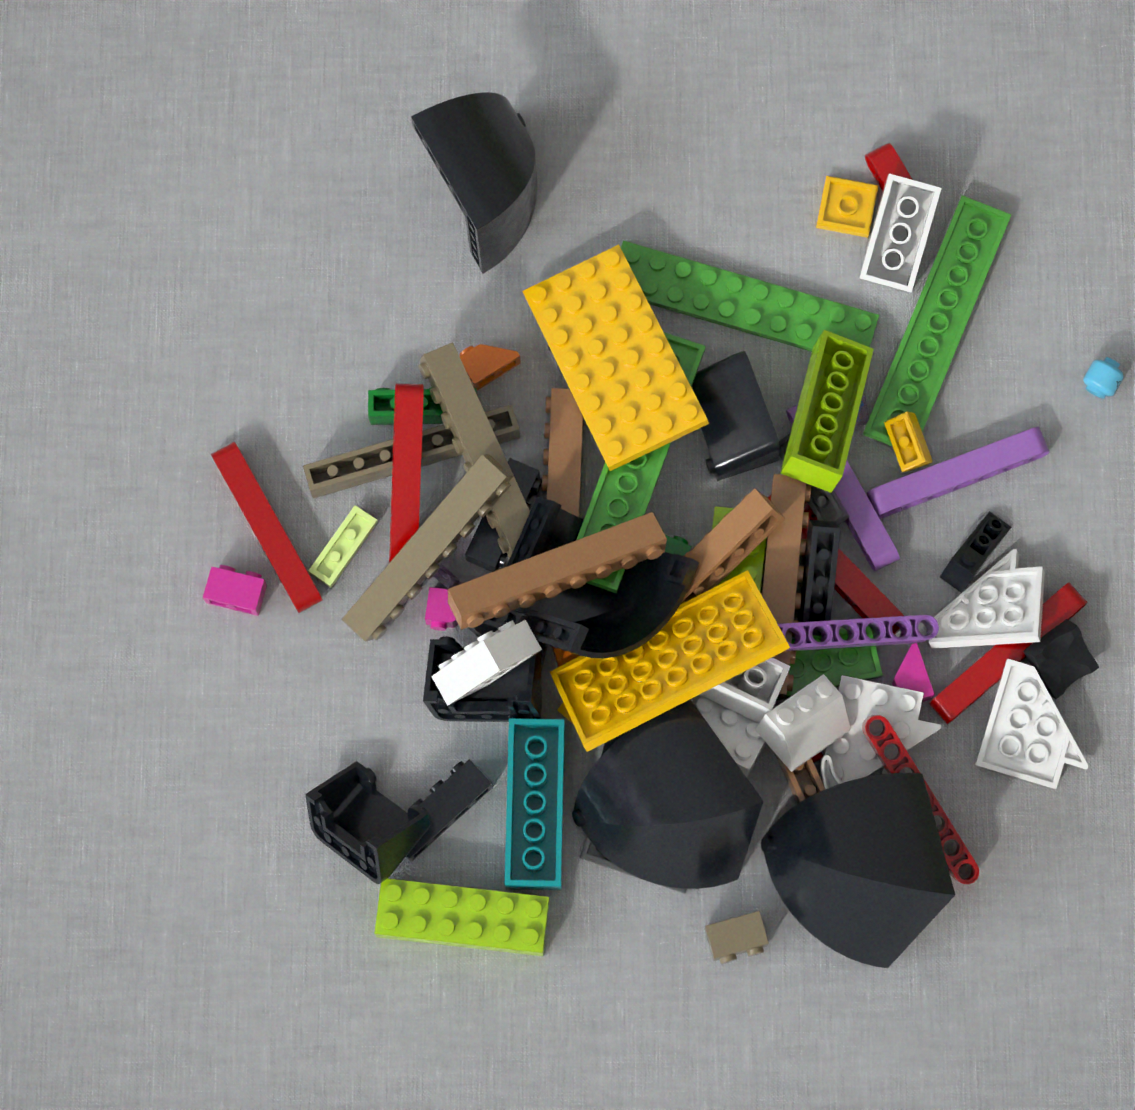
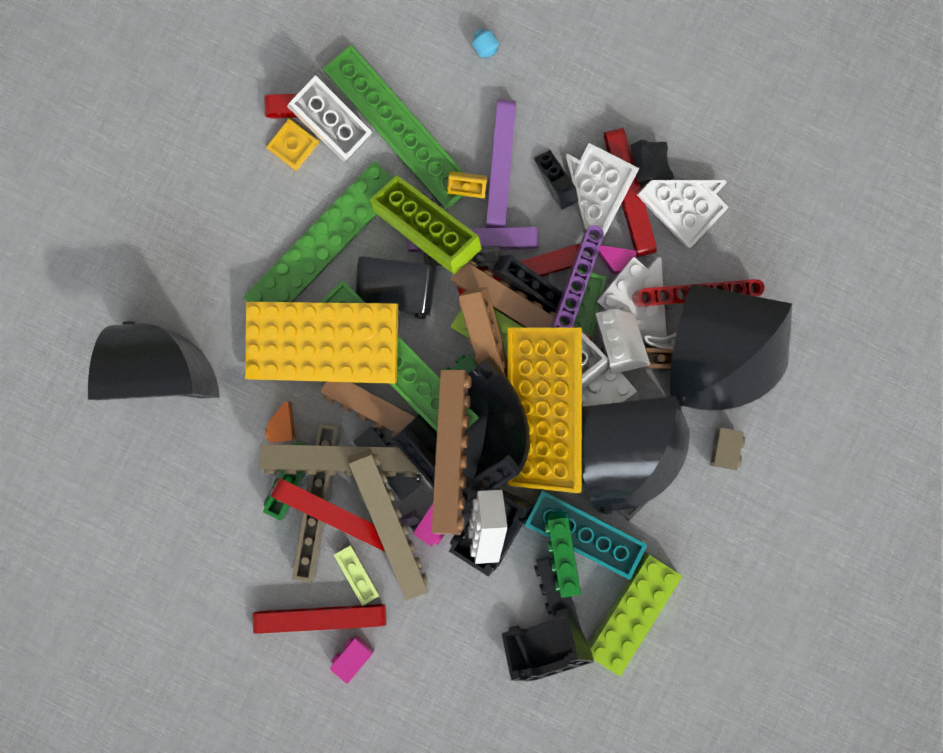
camera: 65 degrees left, 10 degrees up
(496, 781) = (564, 555): none -> green brick

